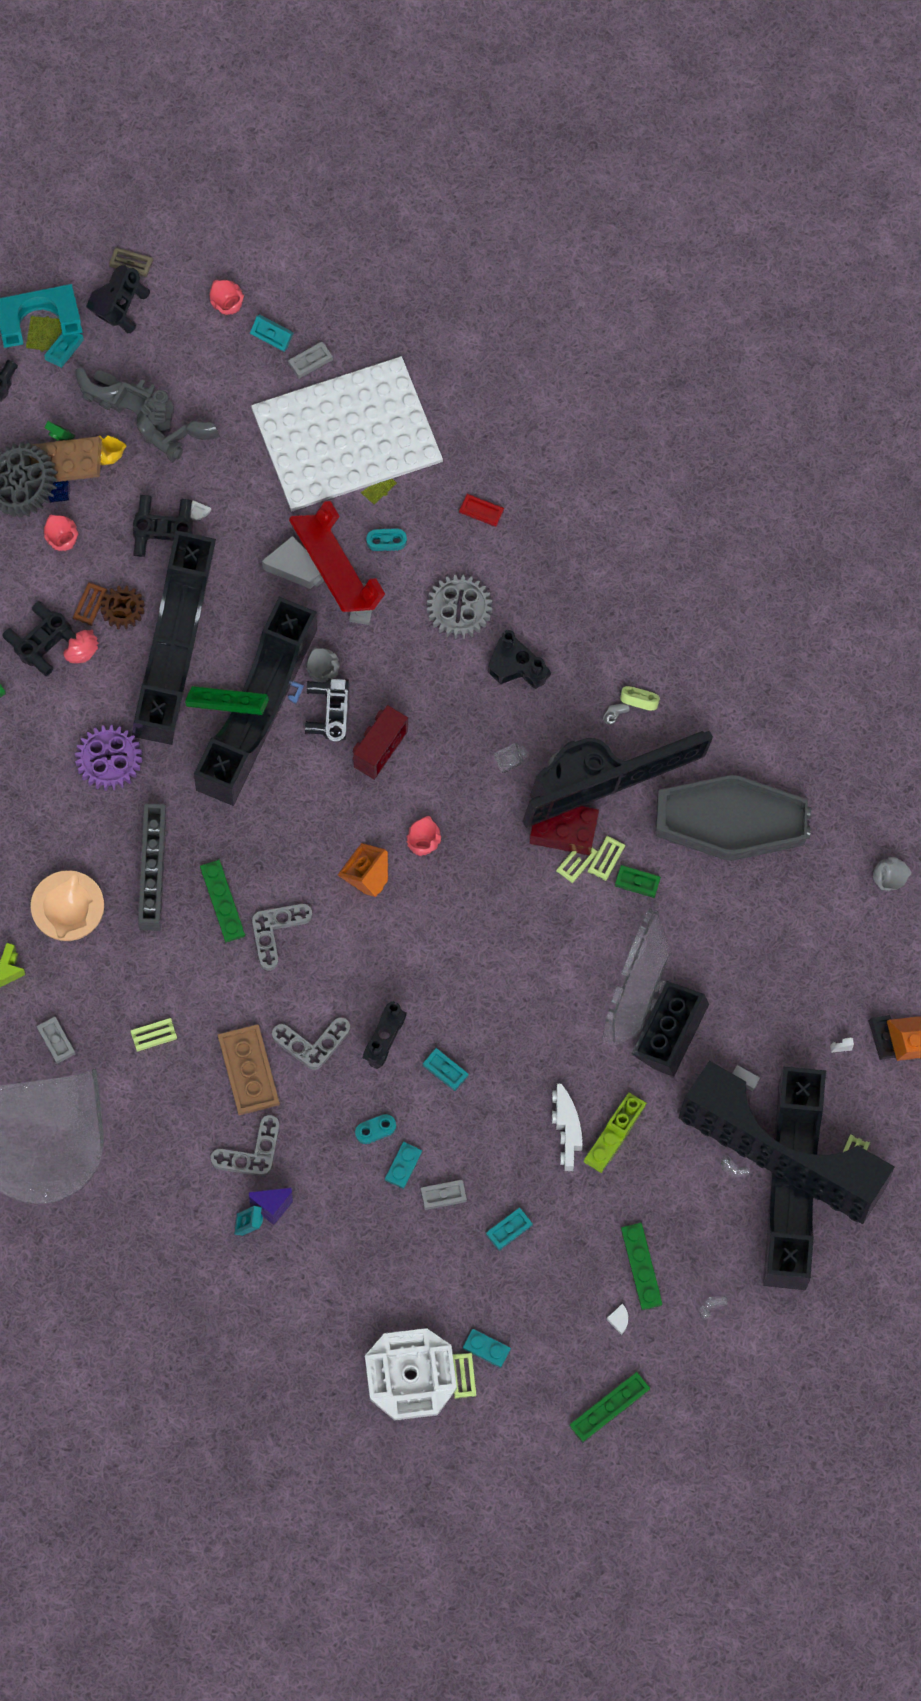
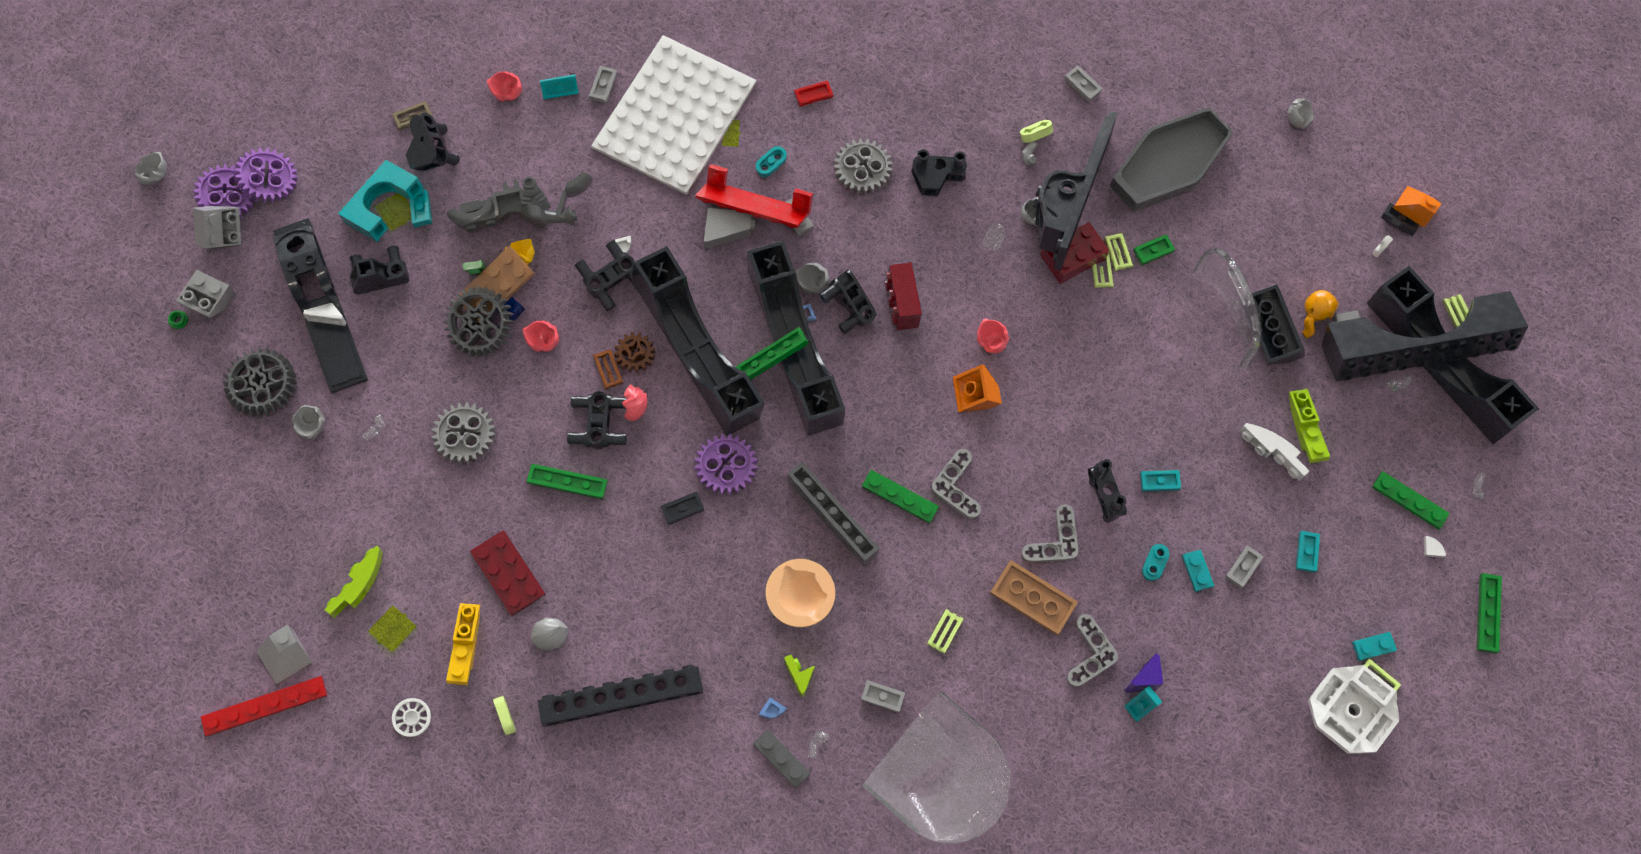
camera: 45 degrees left, 0 degrees up
(42, 763) = (682, 508): none -> black plate
(724, 690) = (1083, 83): none -> light grey plate
(726, 1045) = (1318, 307): none -> light orange piece

